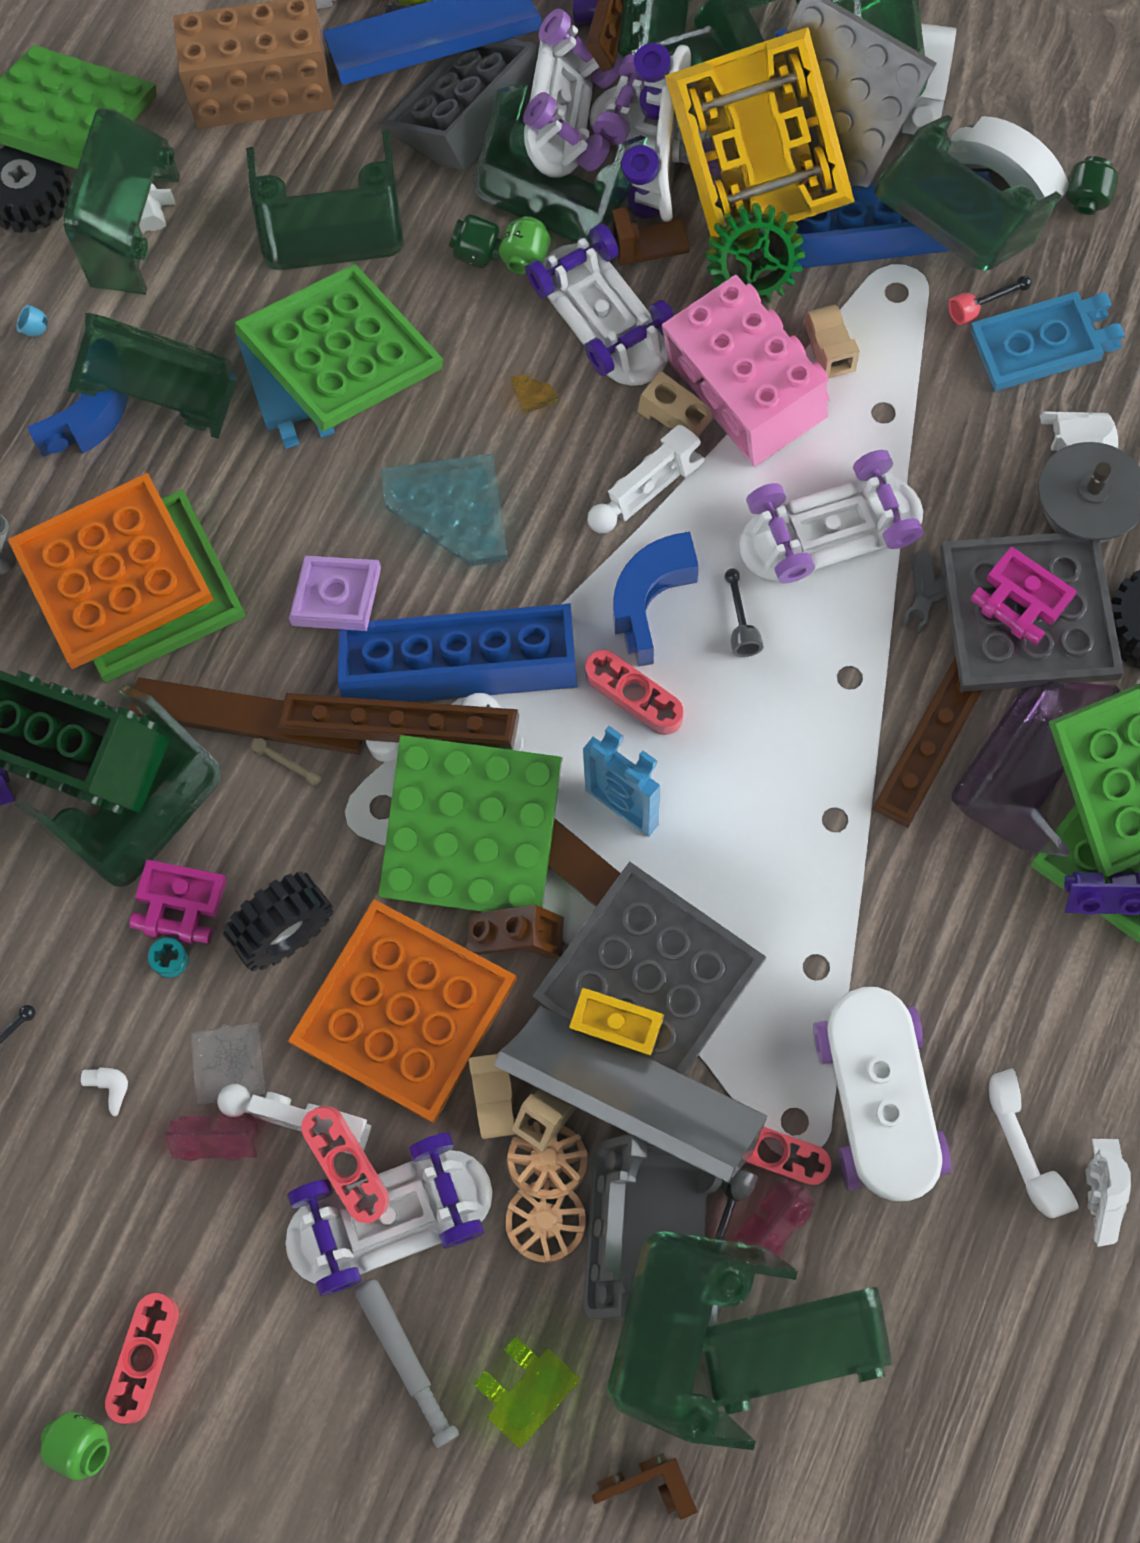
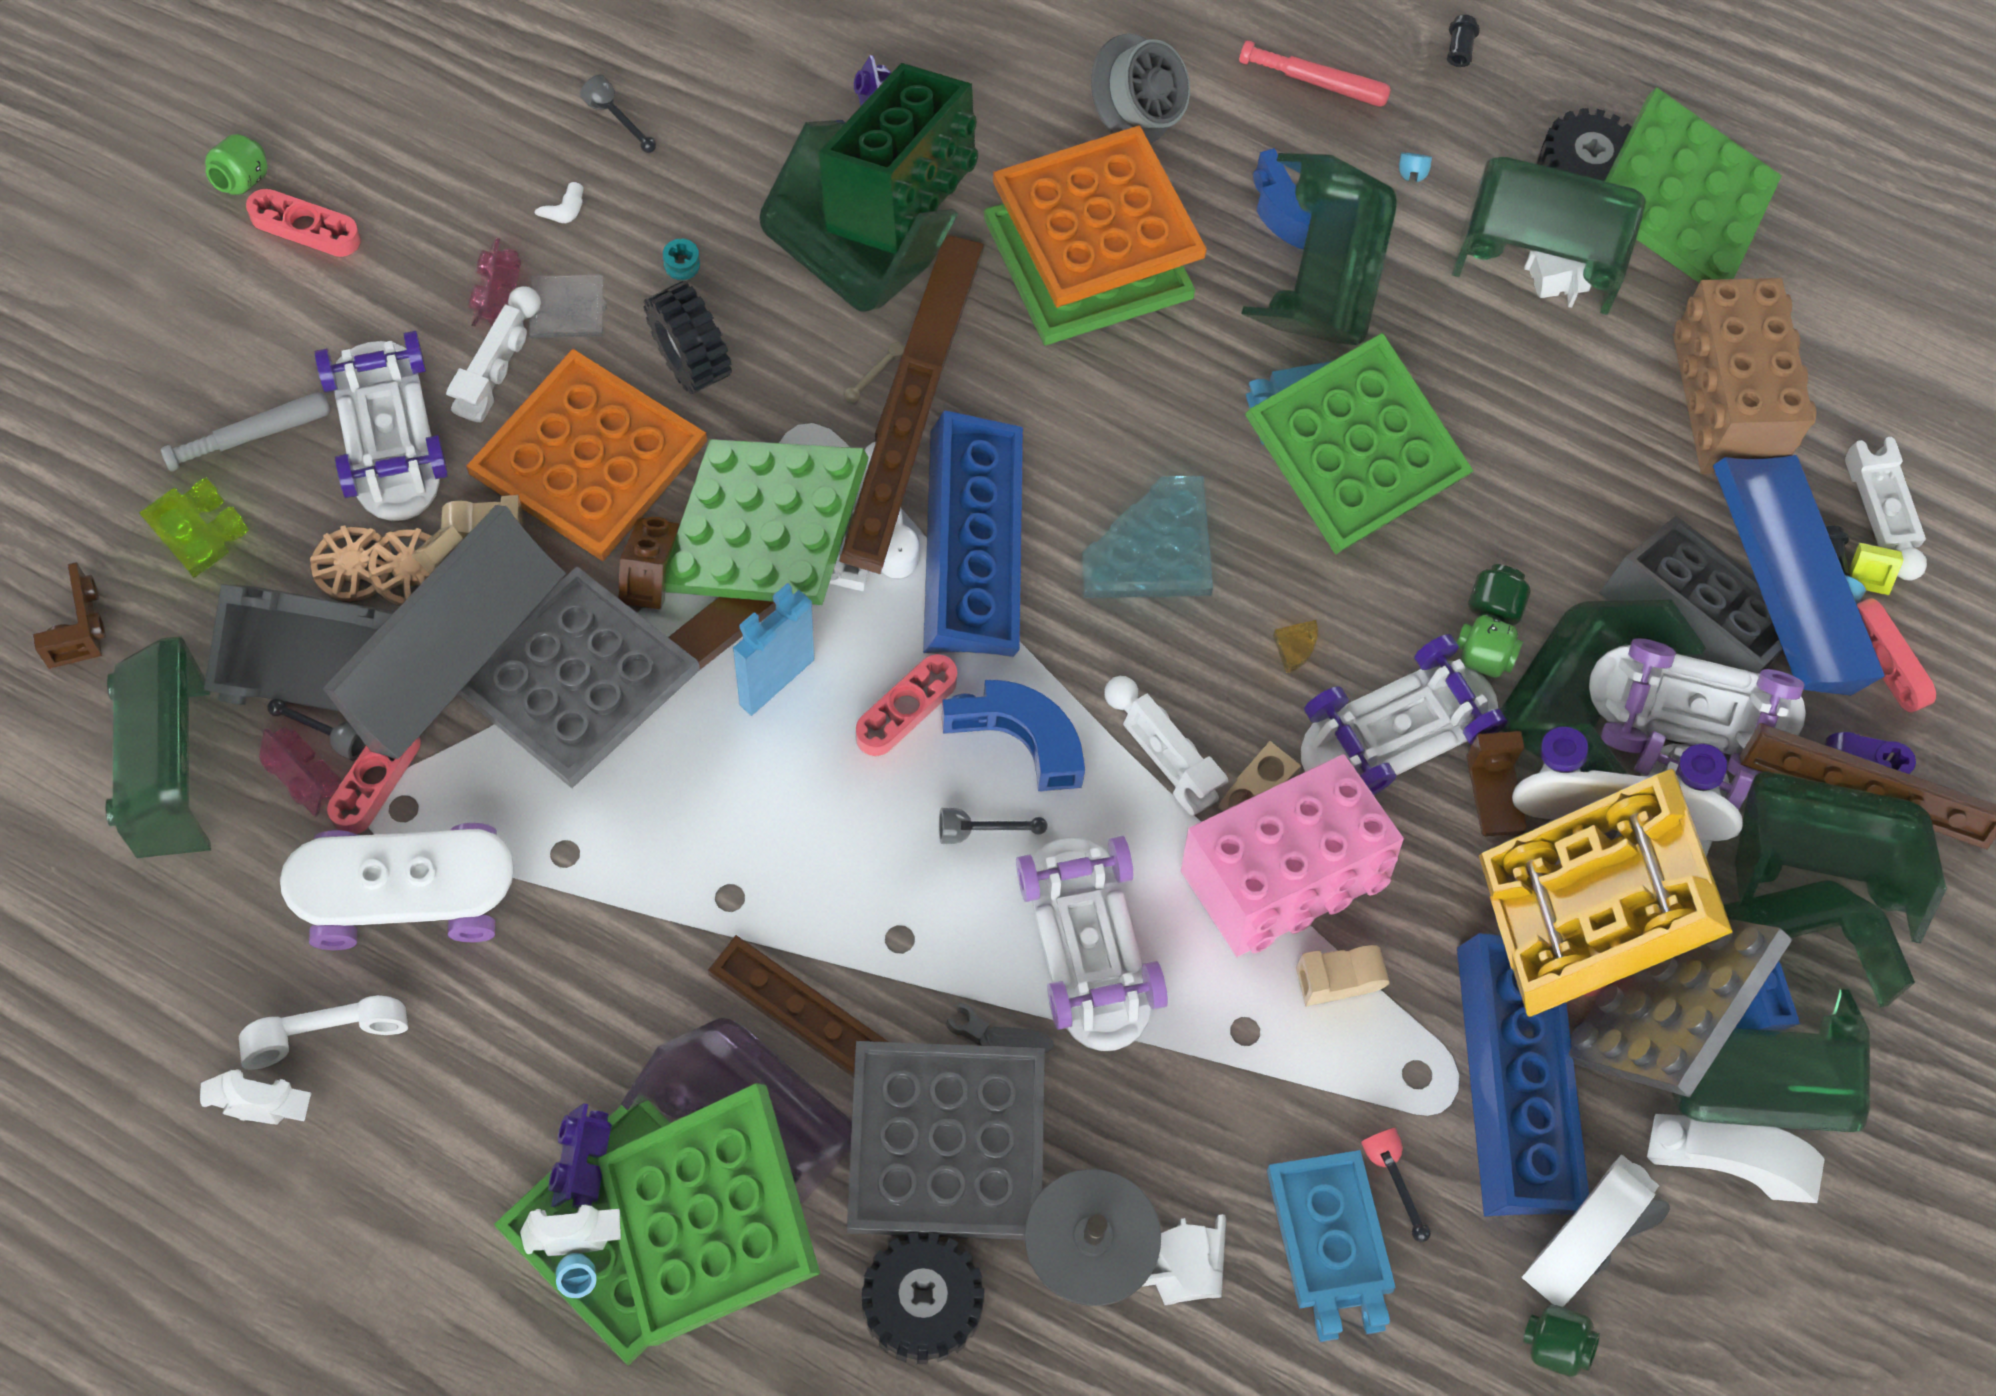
camera: 85 degrees right, 5 degrees down
(178, 889) = (746, 273): dark pink plate -> none
(331, 224) = (1523, 480): clear green windscreen -> none
(335, 593) = (1059, 425): lavender plate -> none
(339, 1182) = (416, 375): coral beam -> none
(616, 1021) = (527, 631): yellow plate -> none
(666, 1329) = (235, 645): clear green windscreen -> none
(762, 224) = (1455, 888): green gear -> none
(958, 204) = (1503, 1125): clear green windscreen -> none
(1030, 587) = (965, 1130): dark pink plate -> none

